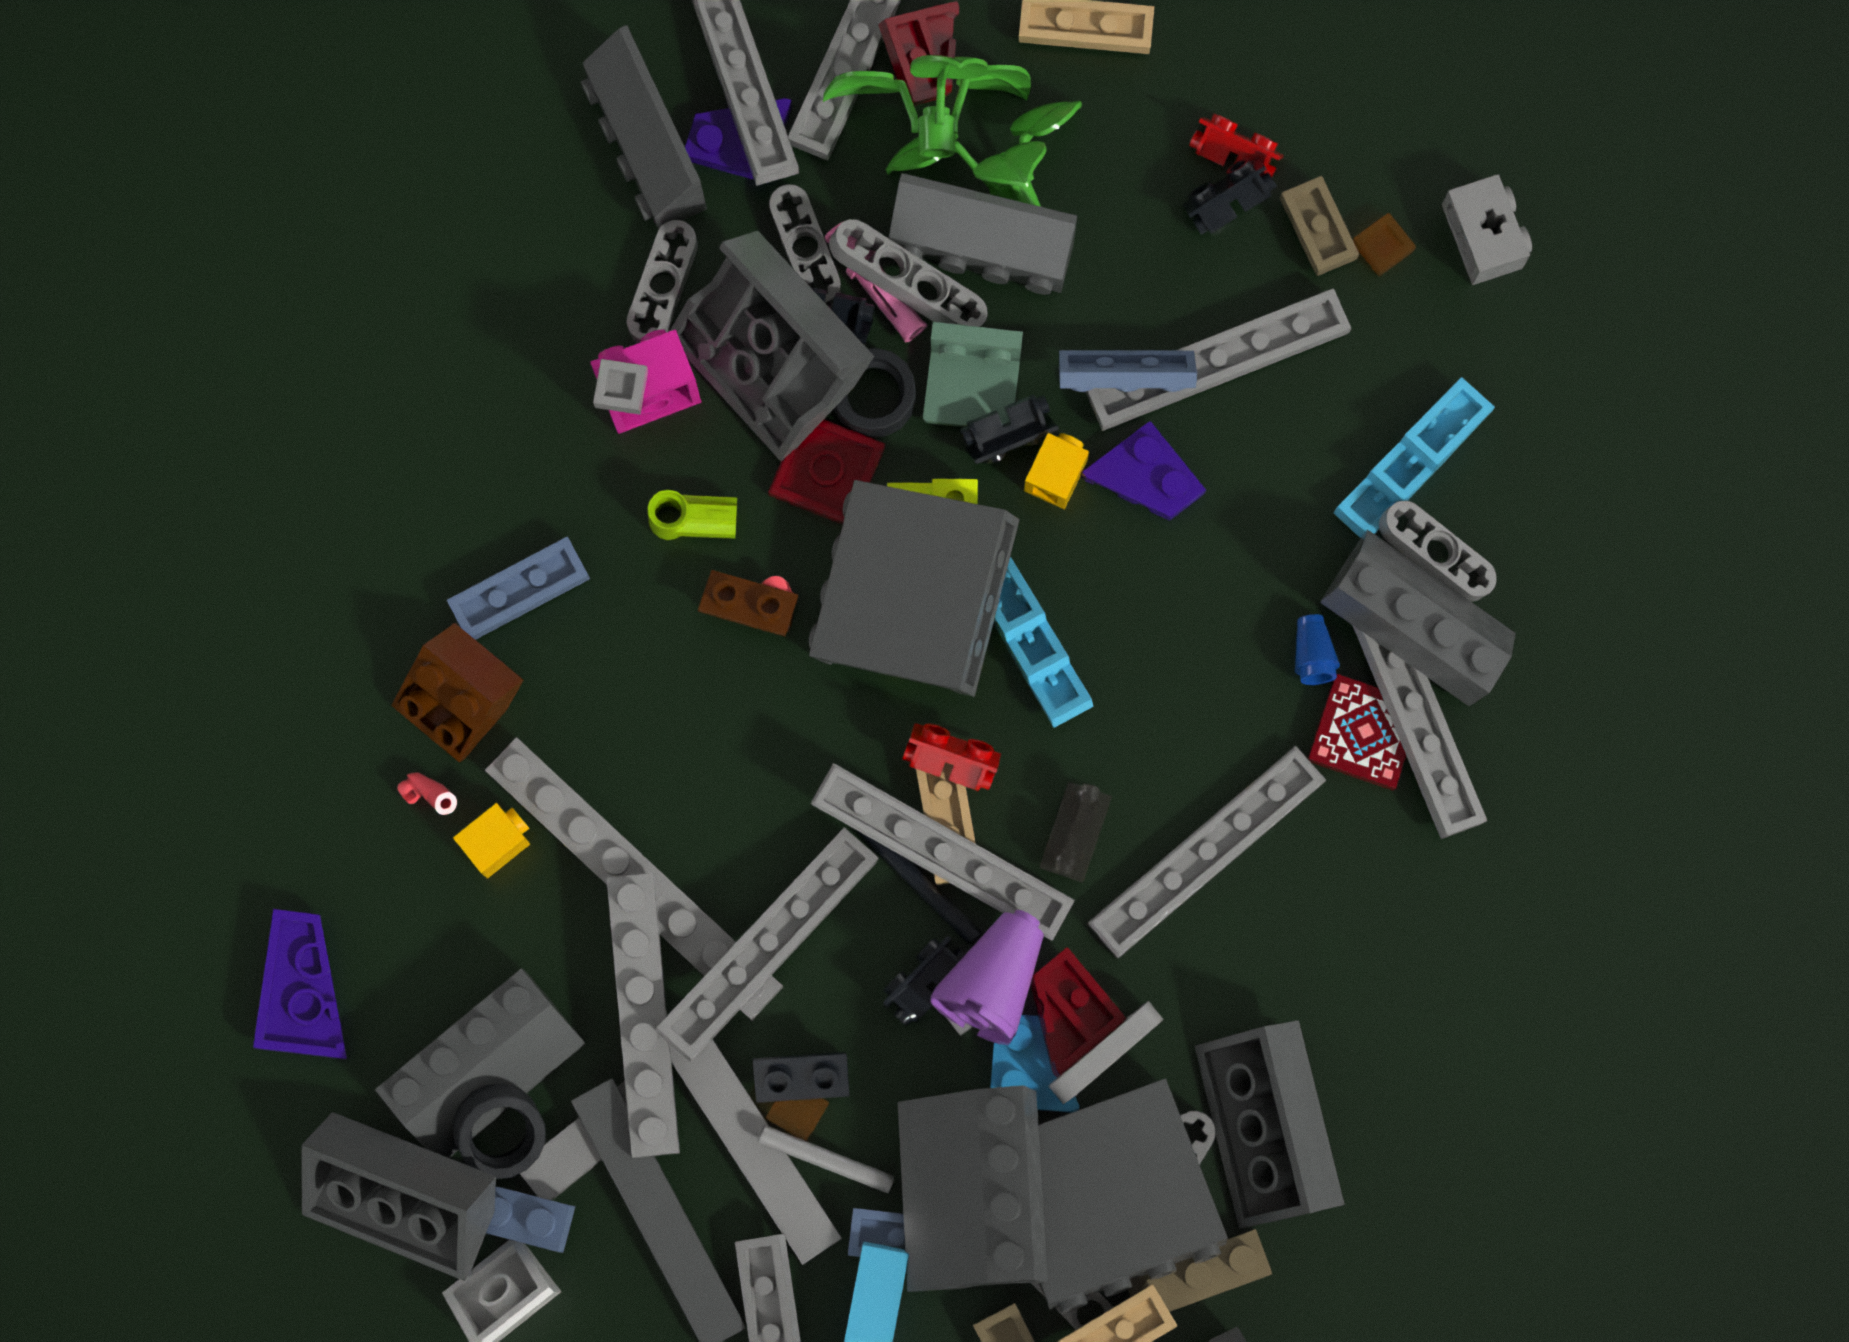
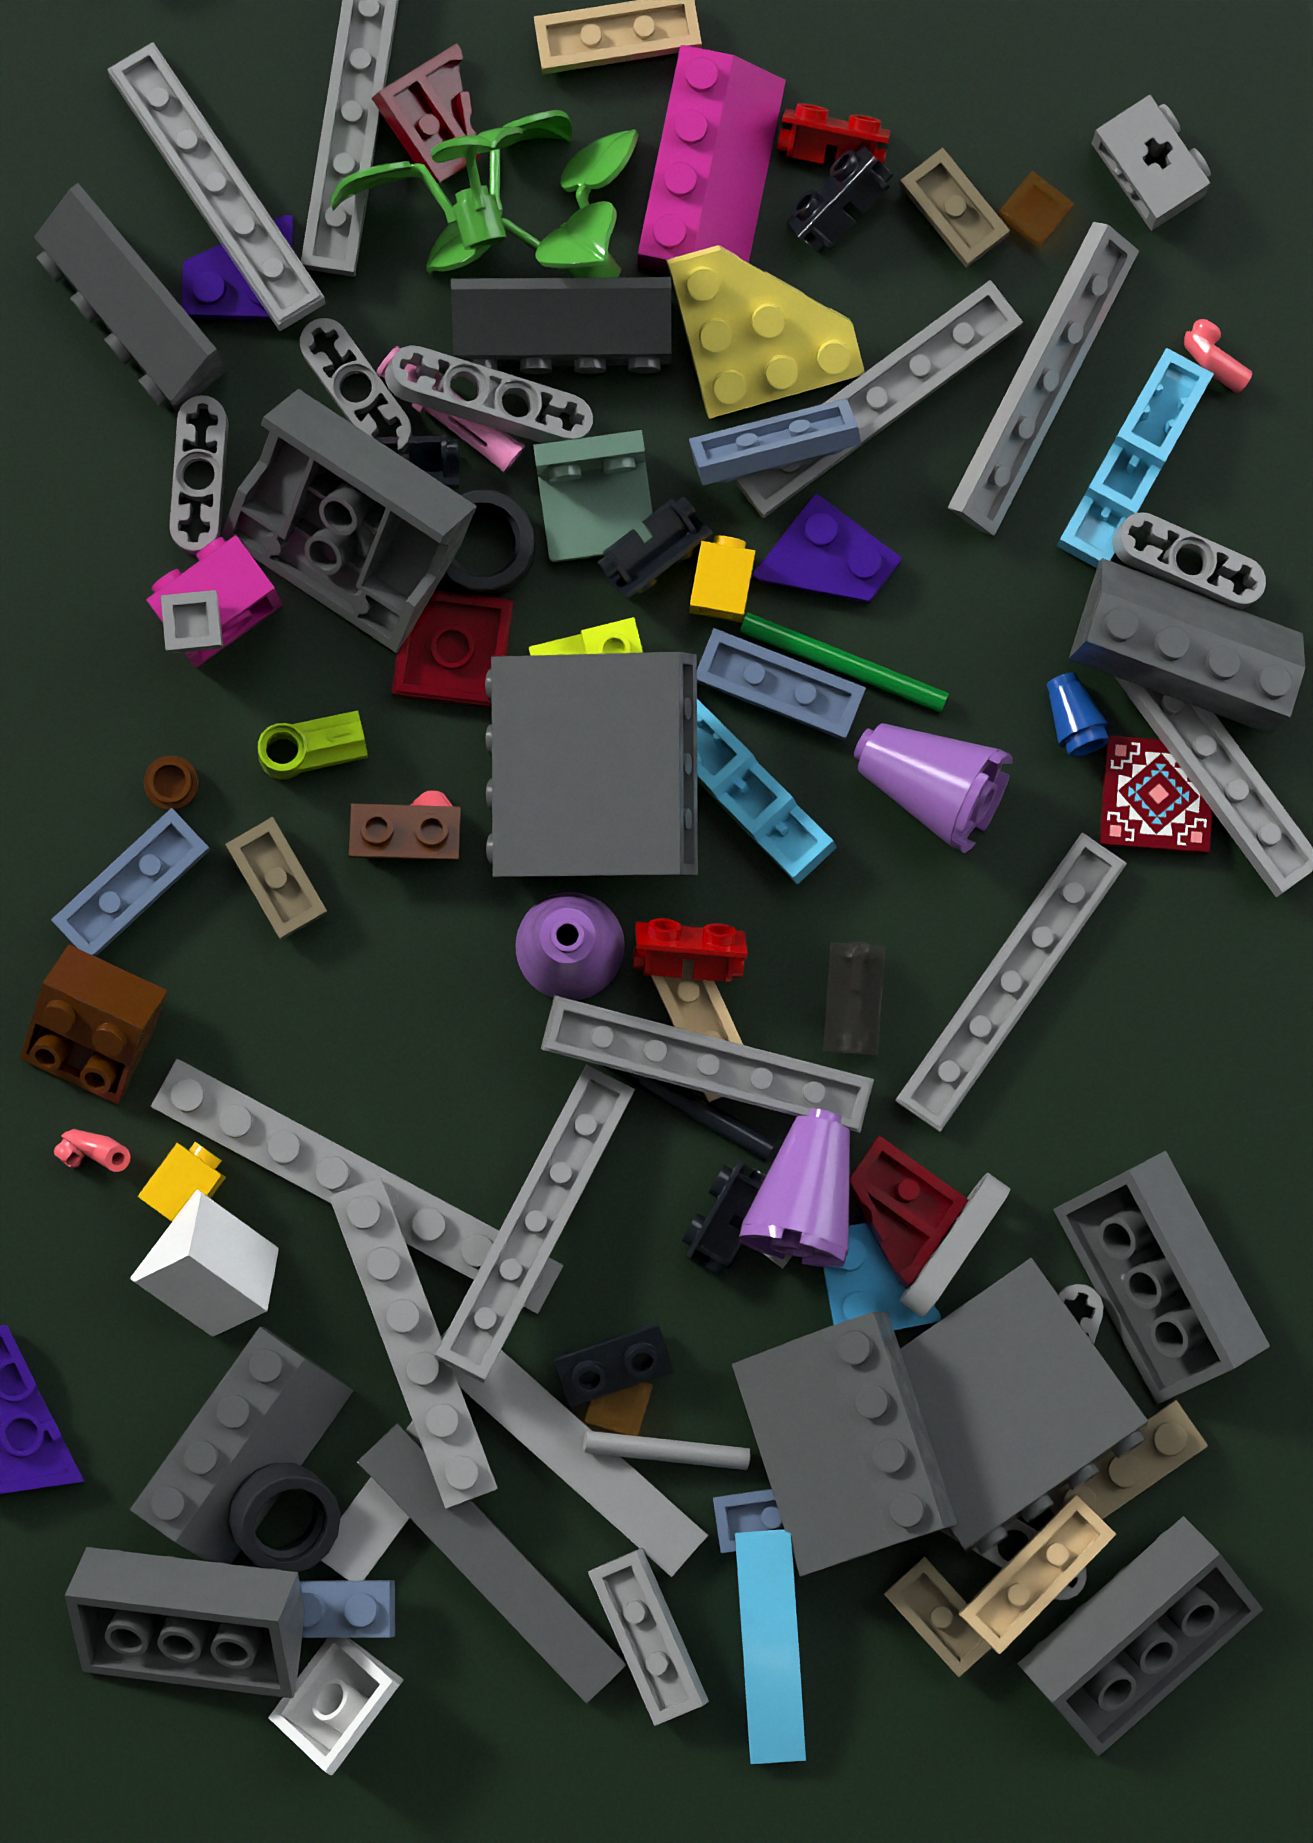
camera: 15 degrees left, 5 degrees up
(495, 910) = (210, 1267): none -> white slope
(573, 517) = (171, 783): none -> reddish brown plate
(636, 614) = (276, 878): none -> dark tan plate
(859, 745) = (575, 969): none -> medium lavender cone
(1081, 564) = (779, 684): none -> sand blue plate
(1132, 146) = (711, 158): none -> dark pink slope
(1134, 282) = (756, 334): none -> light yellow plate
(1138, 561) = (844, 662): none -> green bar
(1188, 671) = (936, 779): none -> medium lavender cone
(1356, 377) = (1043, 378): none -> light grey plate
(1490, 384) = (1202, 347): none -> coral arm

